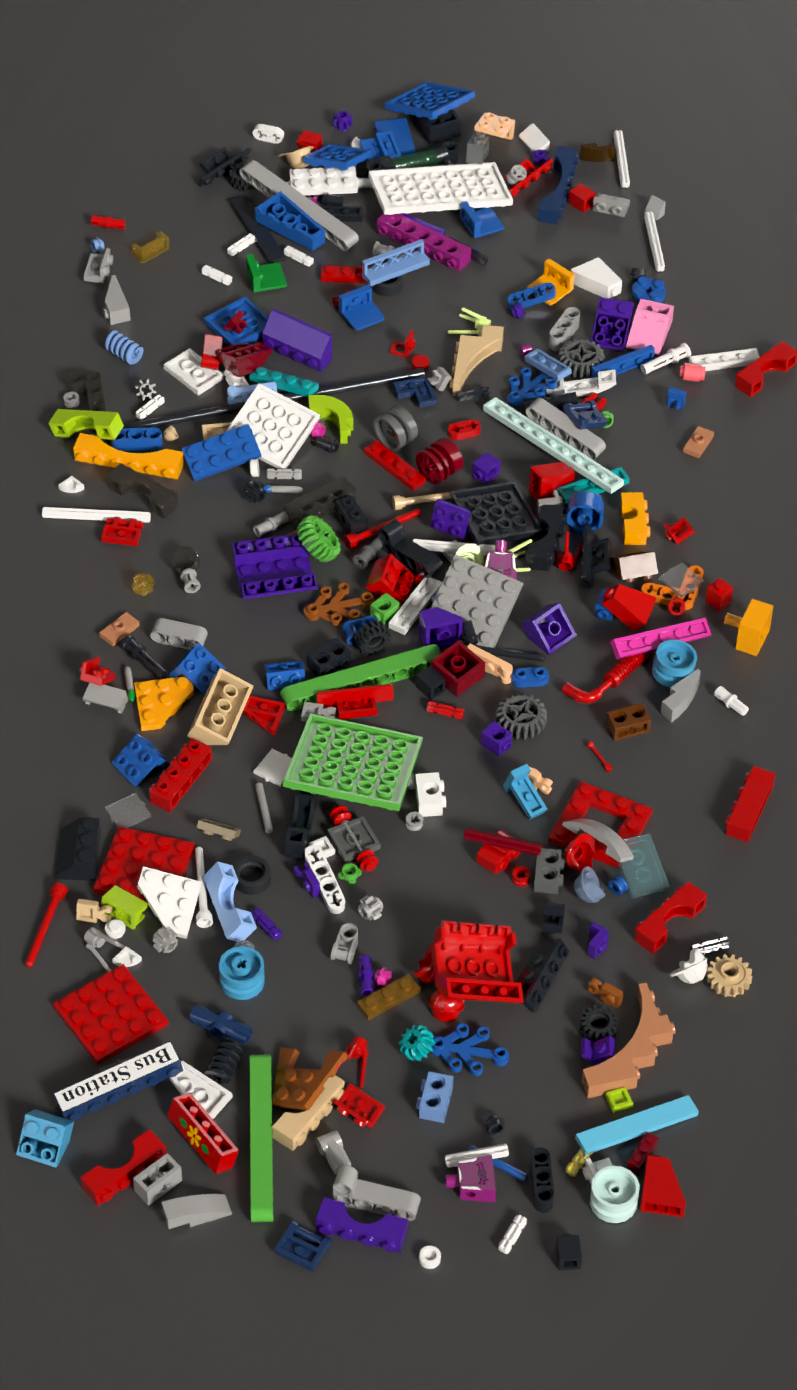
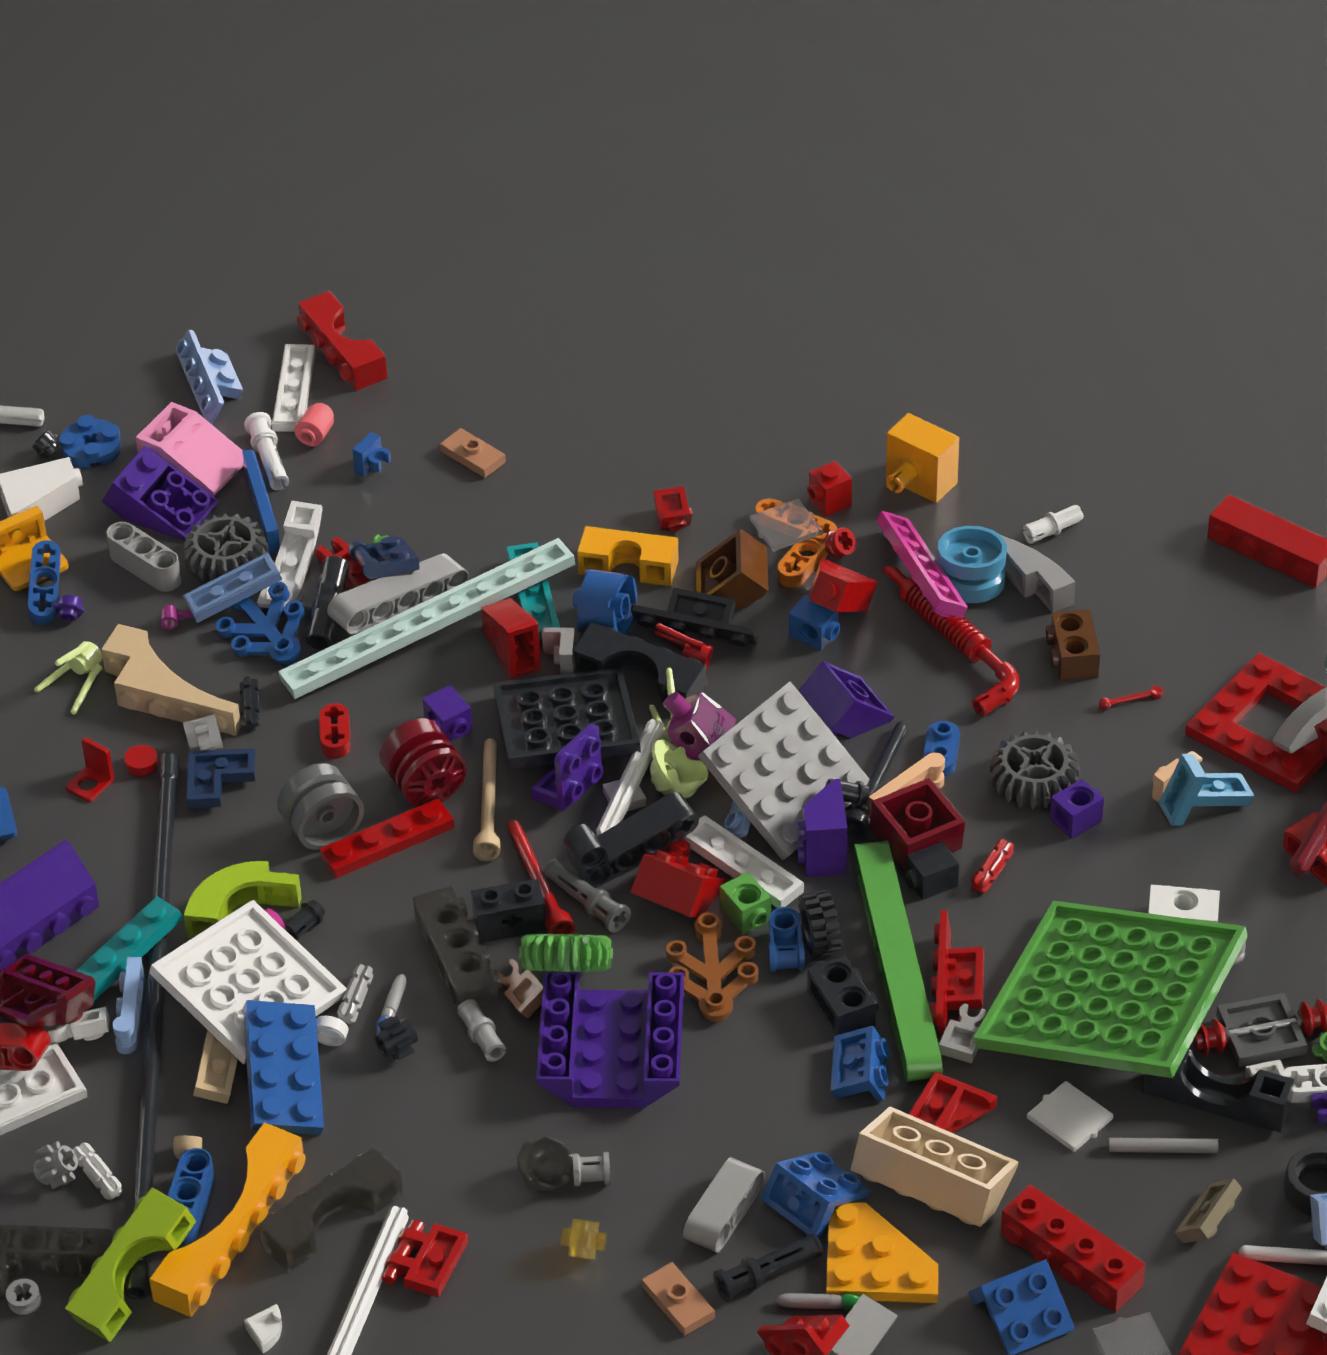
camera: 75 degrees left, 5 degrees down
(718, 325) = (208, 374): none -> medium blue bracket

